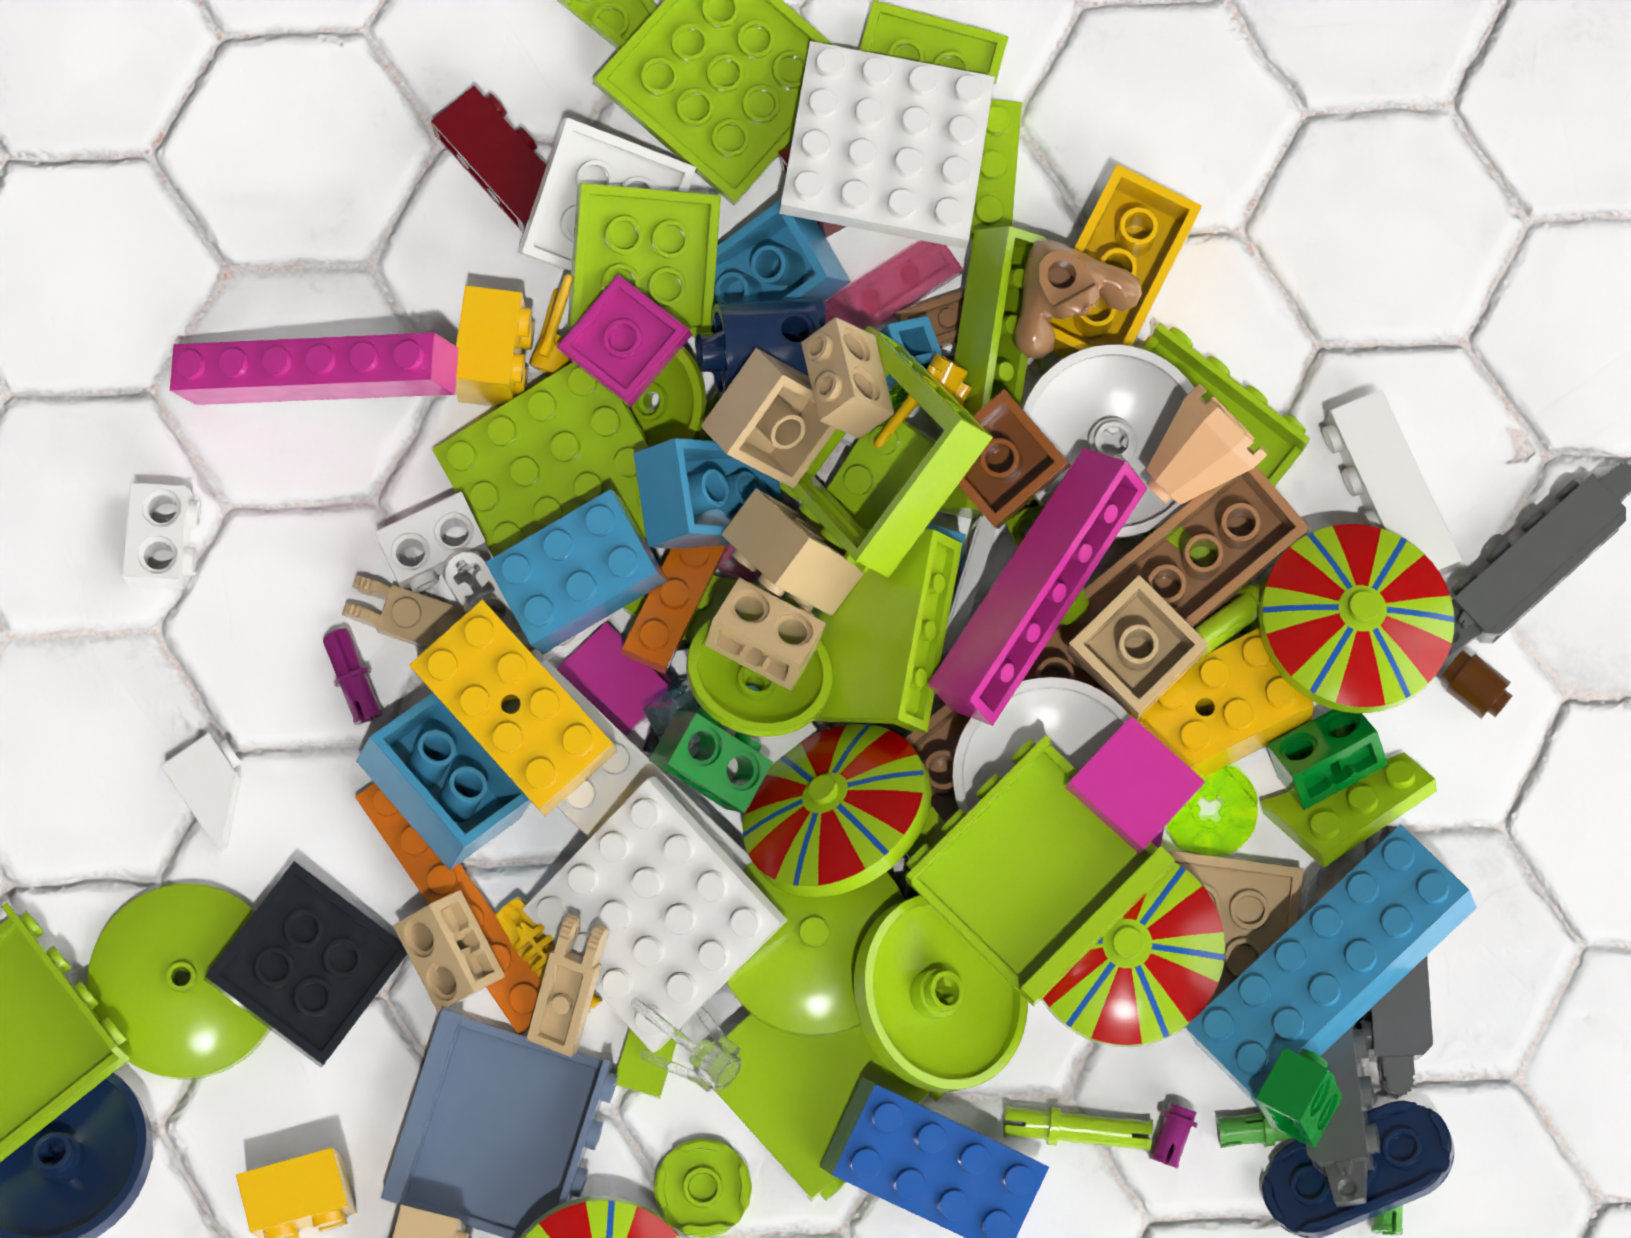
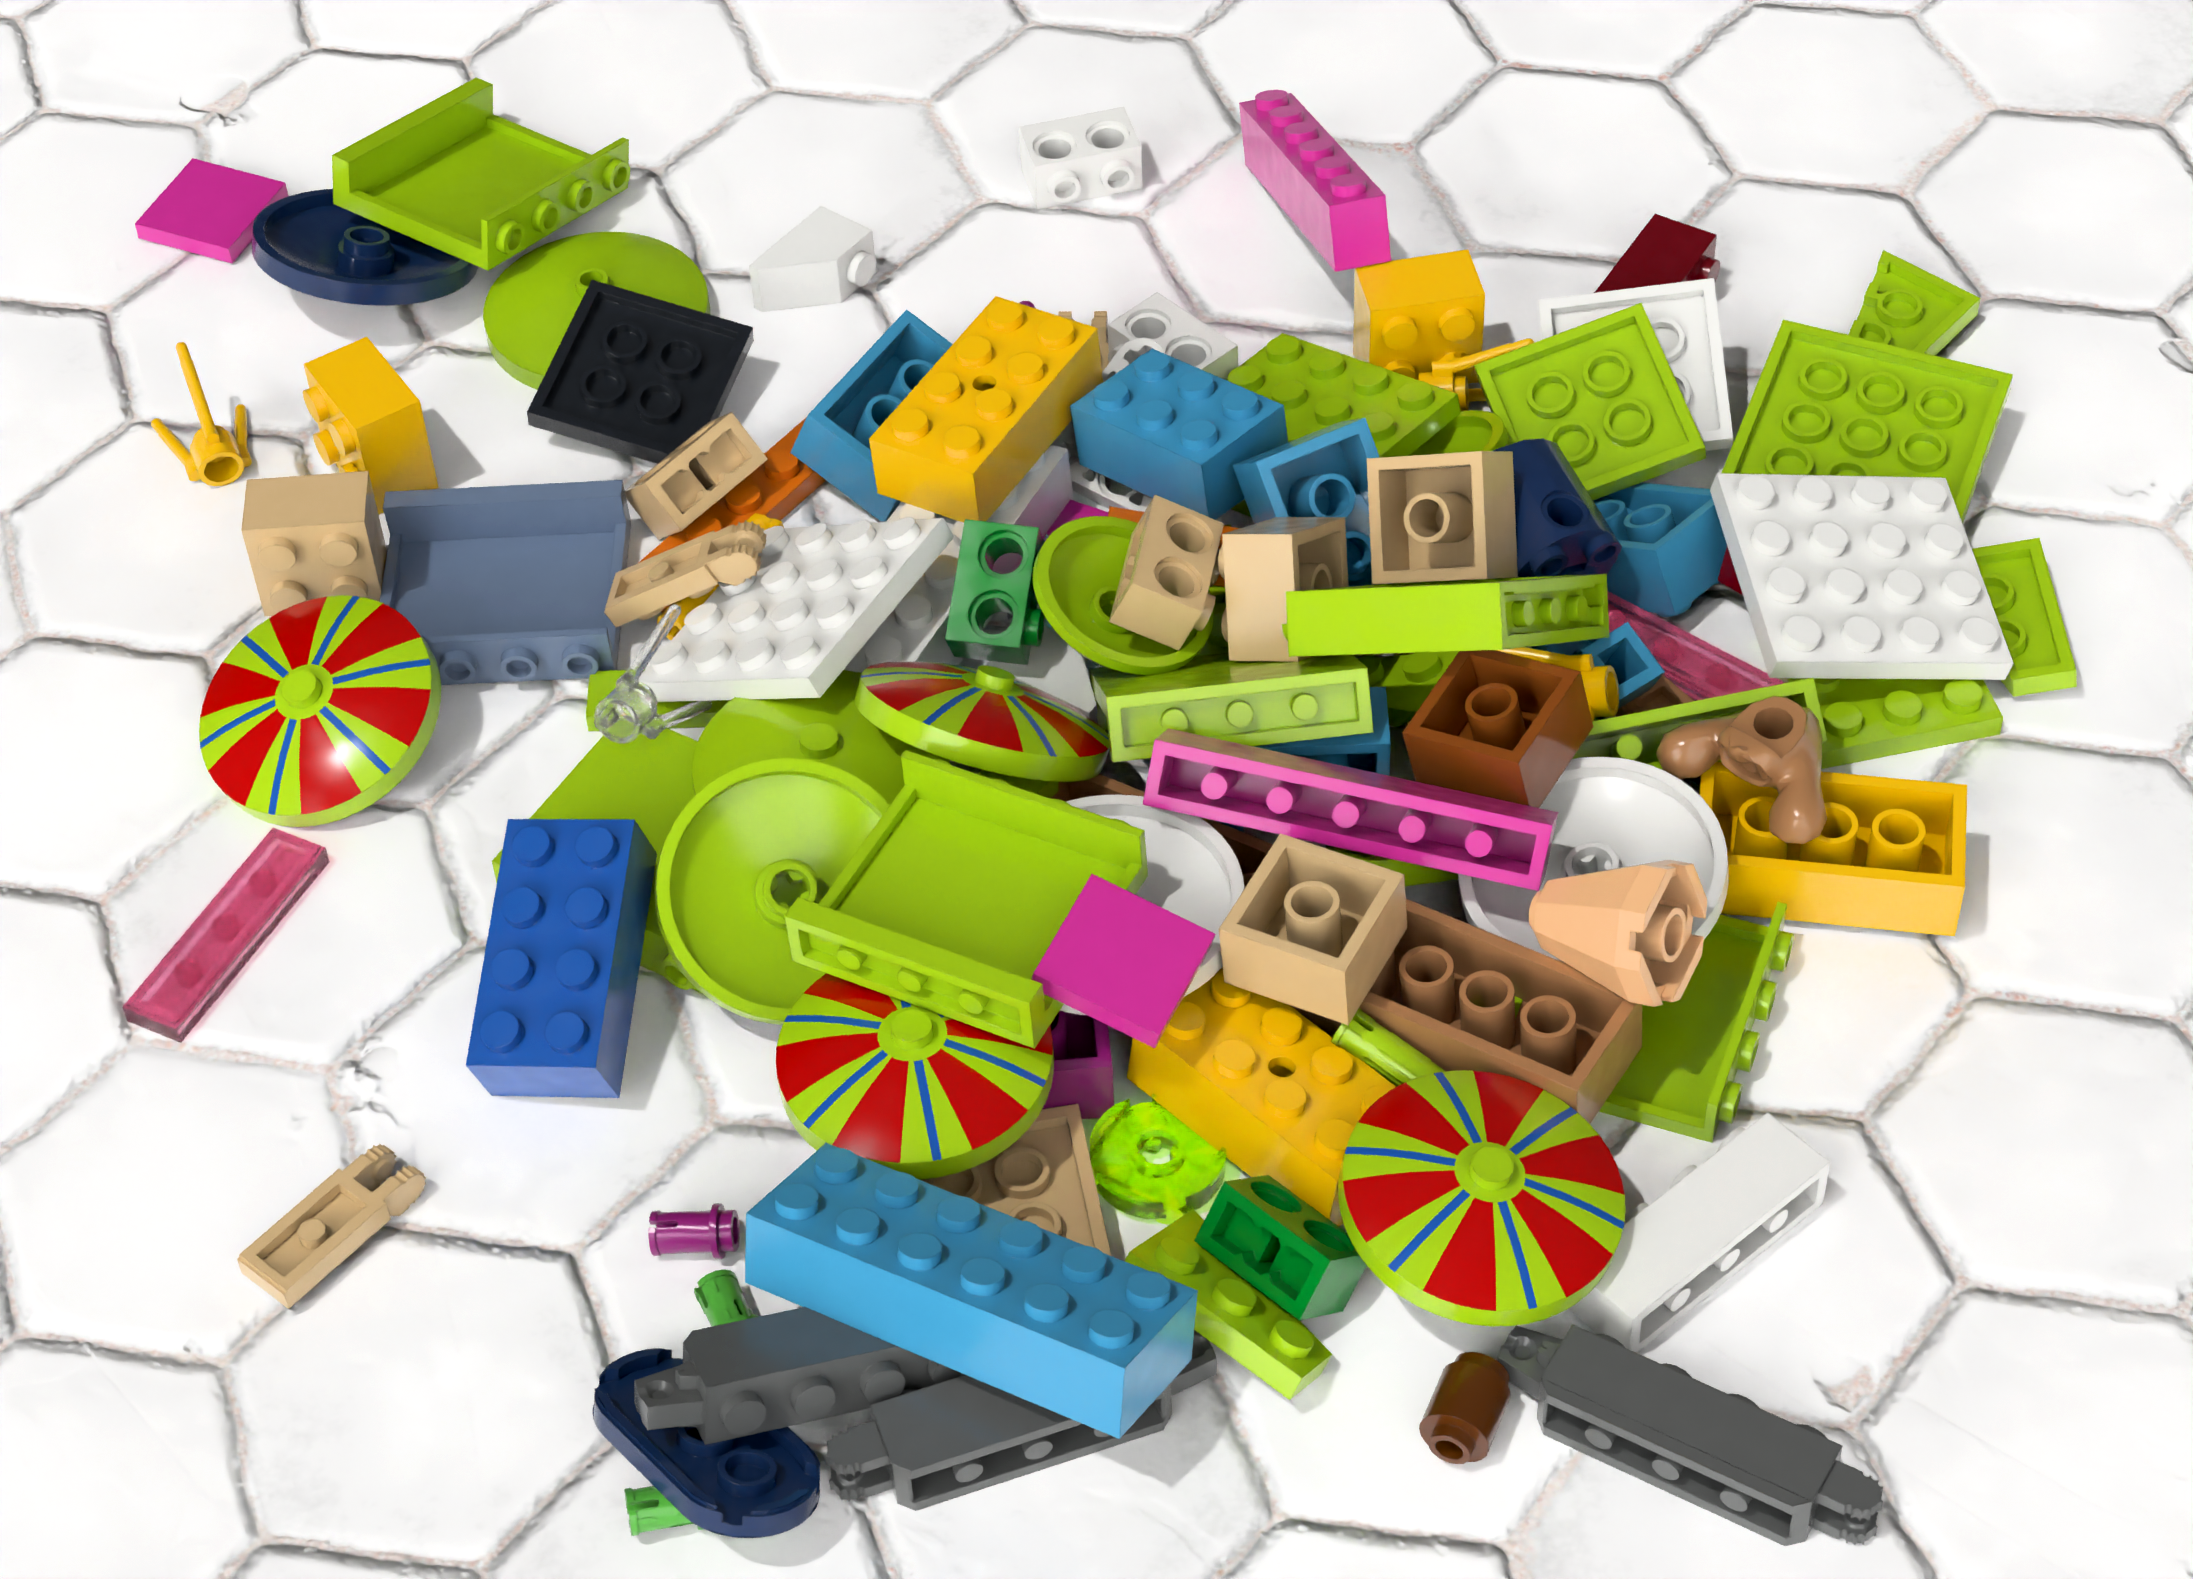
camera: 75 degrees right, 30 degrees down
(624, 340) = (1477, 399): dark pink tile -> none
(703, 1188) = (483, 788): lime tile -> none
(847, 378) = (1519, 540): tan brick -> none
(1077, 1128) = (668, 1105): lime pin -> none
(1300, 1096) = (759, 1264): green brick -> none

